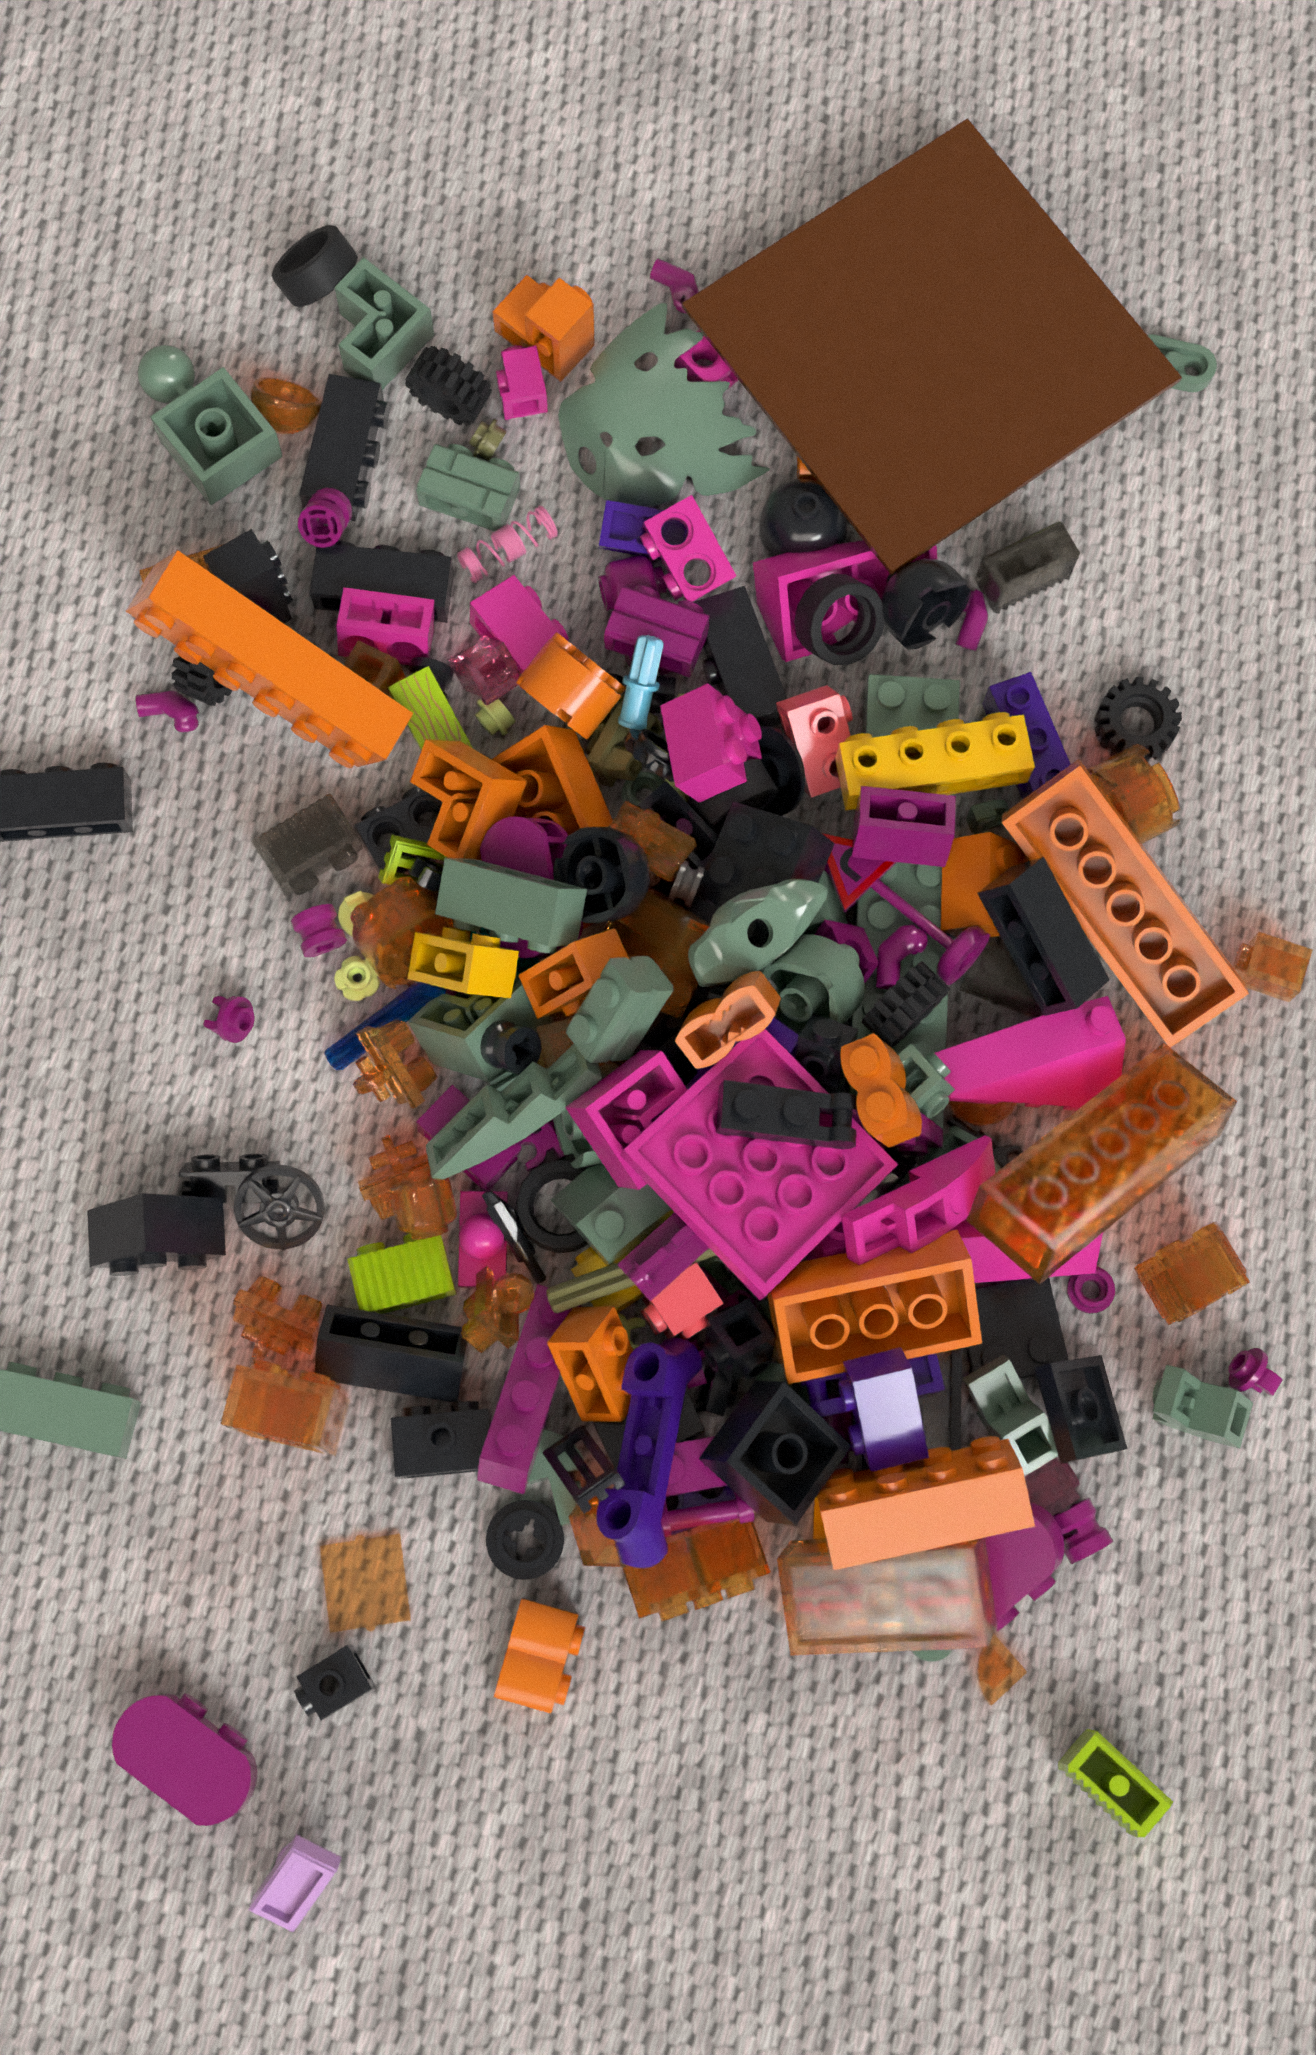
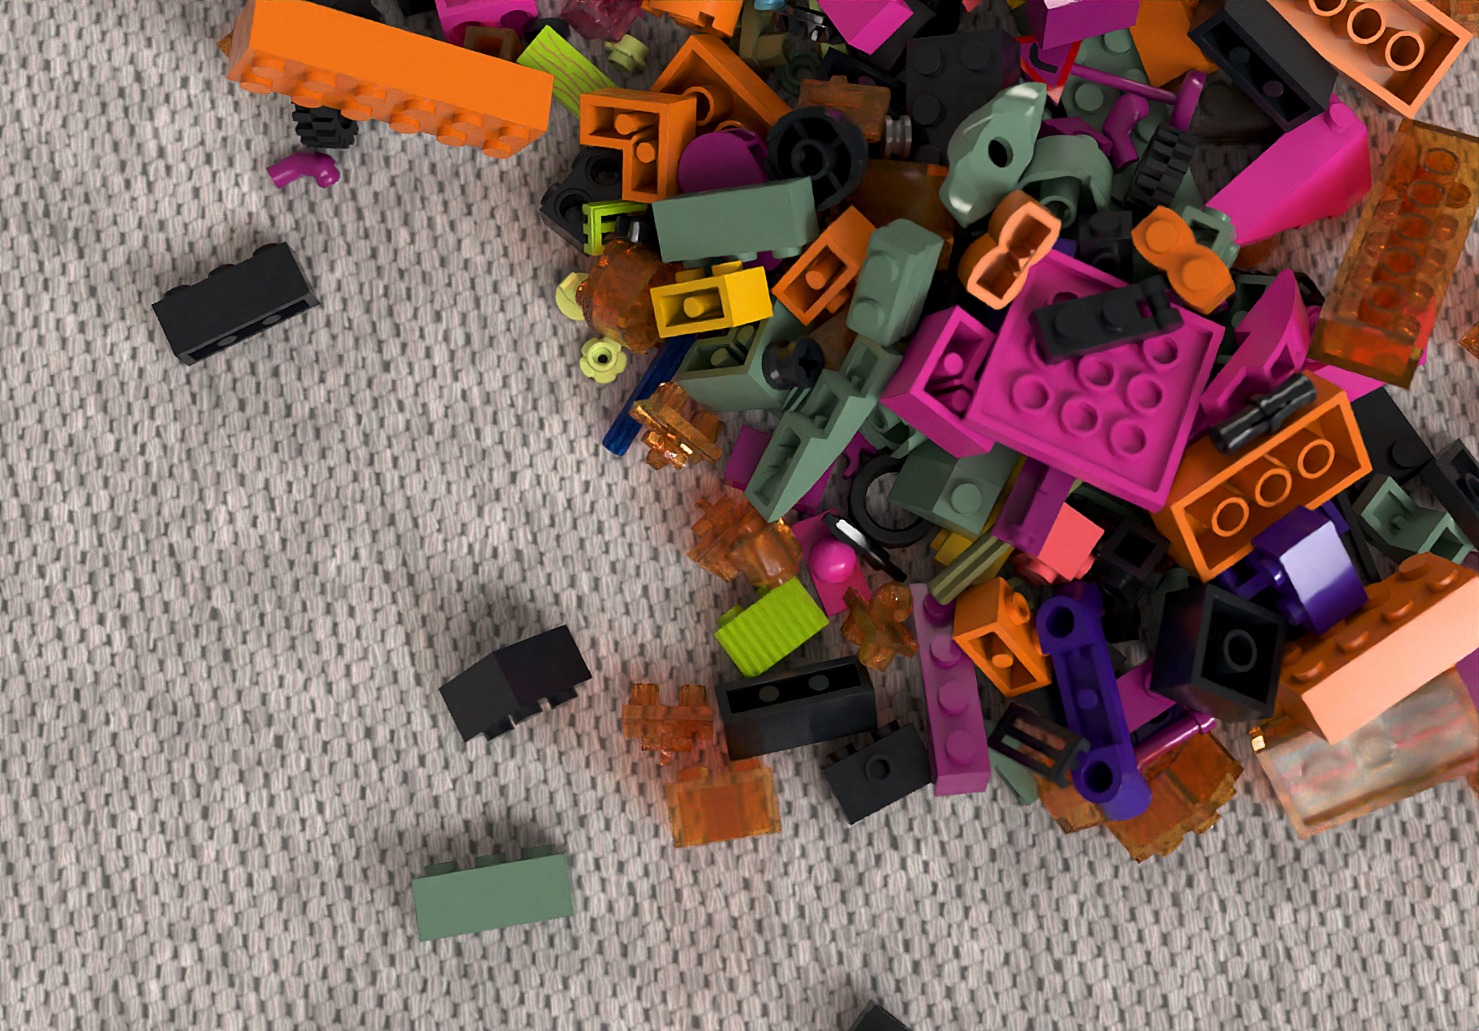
camera: 20 degrees left, 5 degrees up
(211, 1177) = (579, 591): black hinge -> none
(233, 1019) = (501, 446): magenta plate -> none
(279, 1207) = (624, 610): black wheel -> none
(308, 846) = (500, 249): clear smoke brick -> none
(318, 930) = (545, 327): magenta wheel -> none
(365, 1583) = (859, 935): clear orange piece -> none
(515, 1518) = (1011, 849): black gear -> none
(538, 1655) = (1056, 937): orange brick -> none
(888, 1250) = (1262, 413): none -> black pin
(1101, 1302) = (1438, 385): magenta plate -> none

